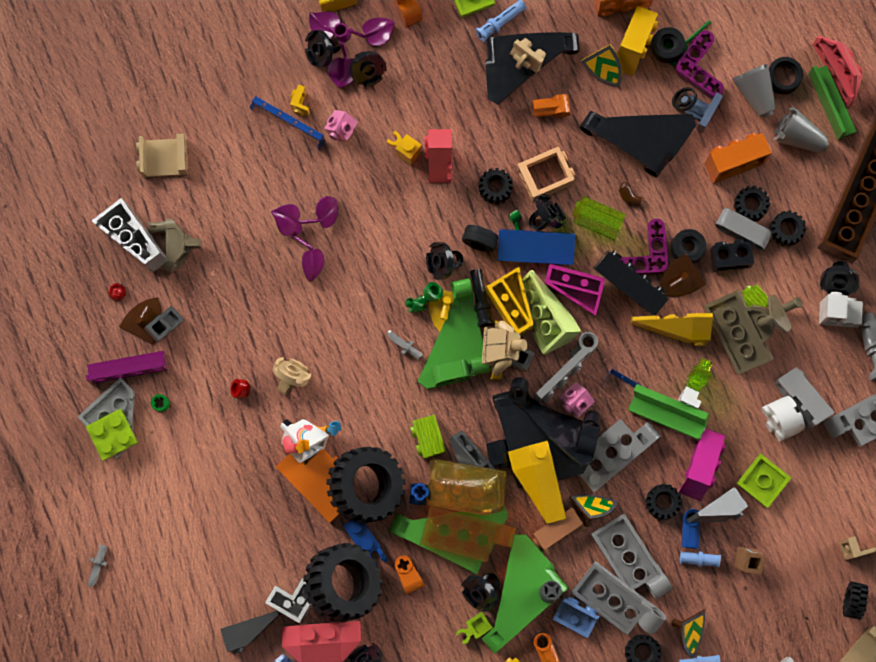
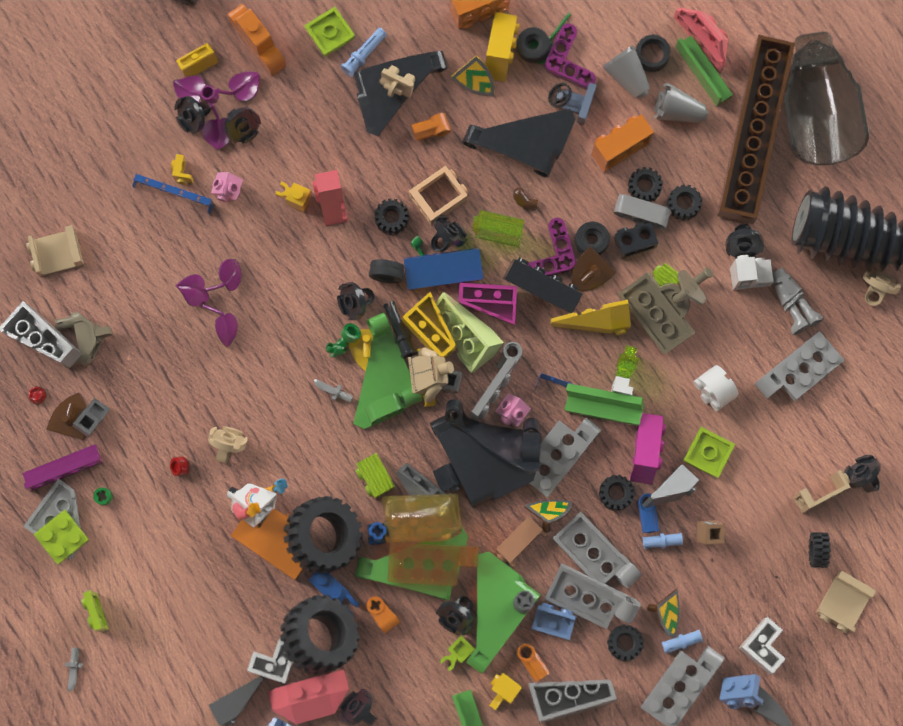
camera: 15 degrees left, 0 degrees up
(128, 506) = (97, 618): none -> lime plate
(537, 474) = (489, 492): yellow wedge -> none
(807, 399) = (735, 365): light grey wedge -> none

